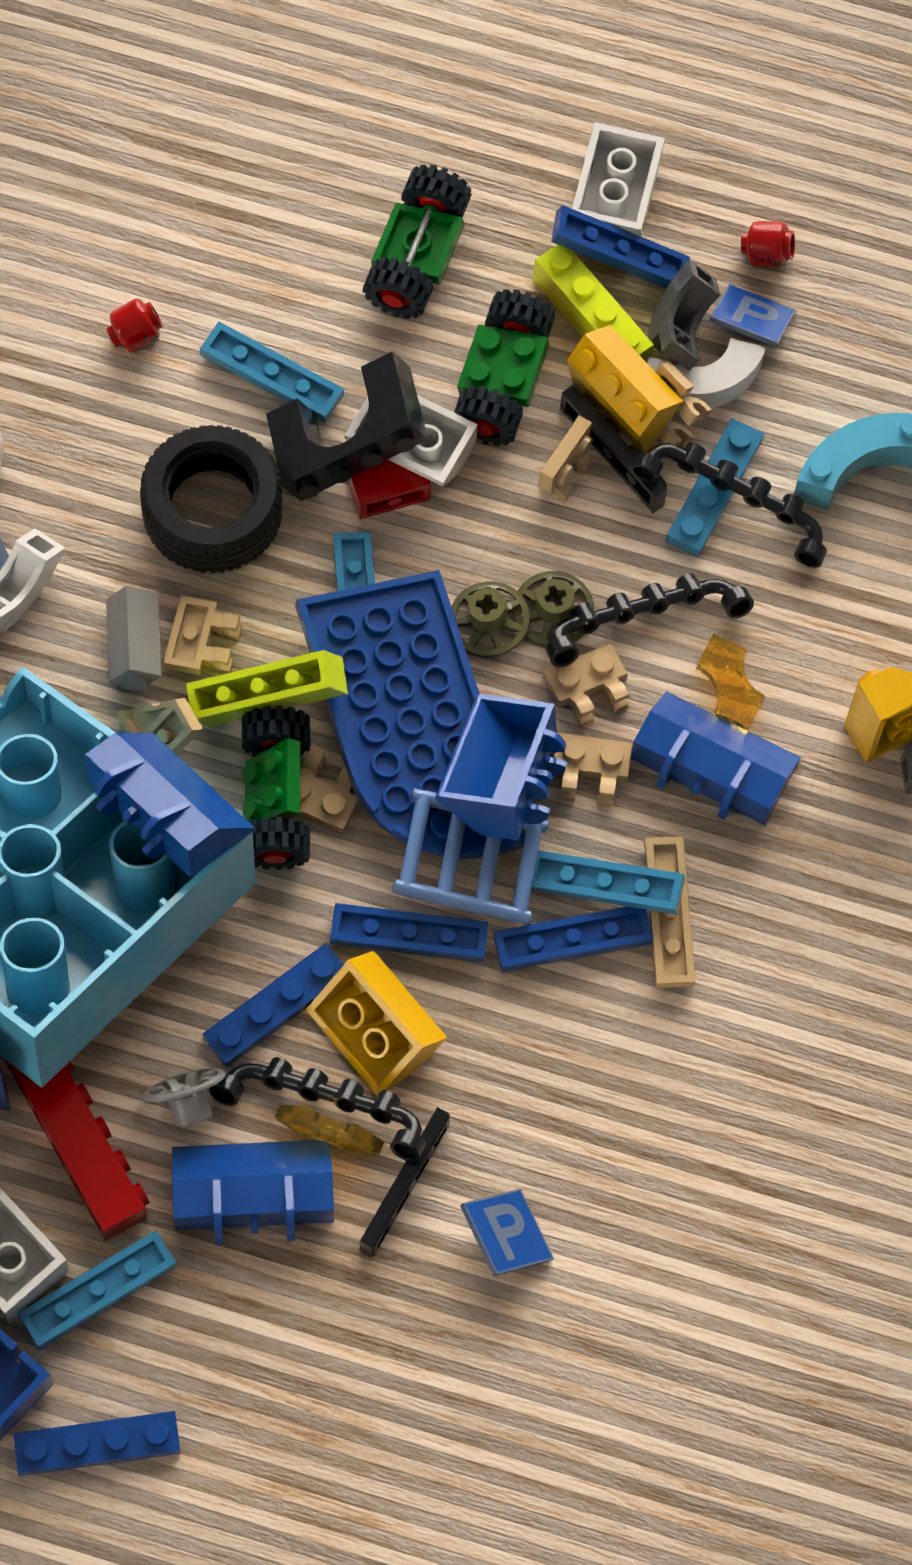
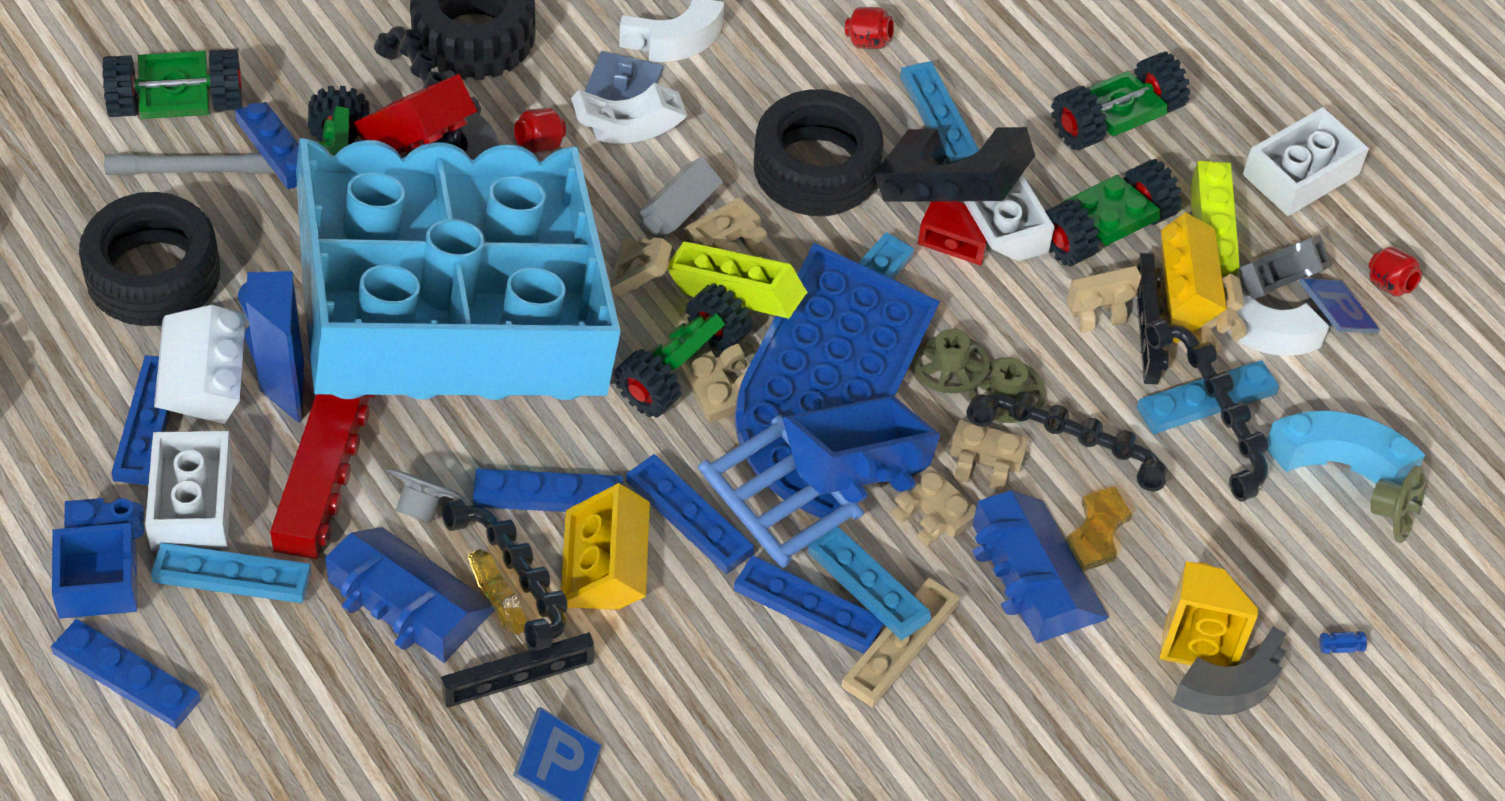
camera: 40 degrees right, 15 degrees down
(163, 800) = (578, 266): blue piece -> none
(616, 246) = (1267, 190): blue plate -> none

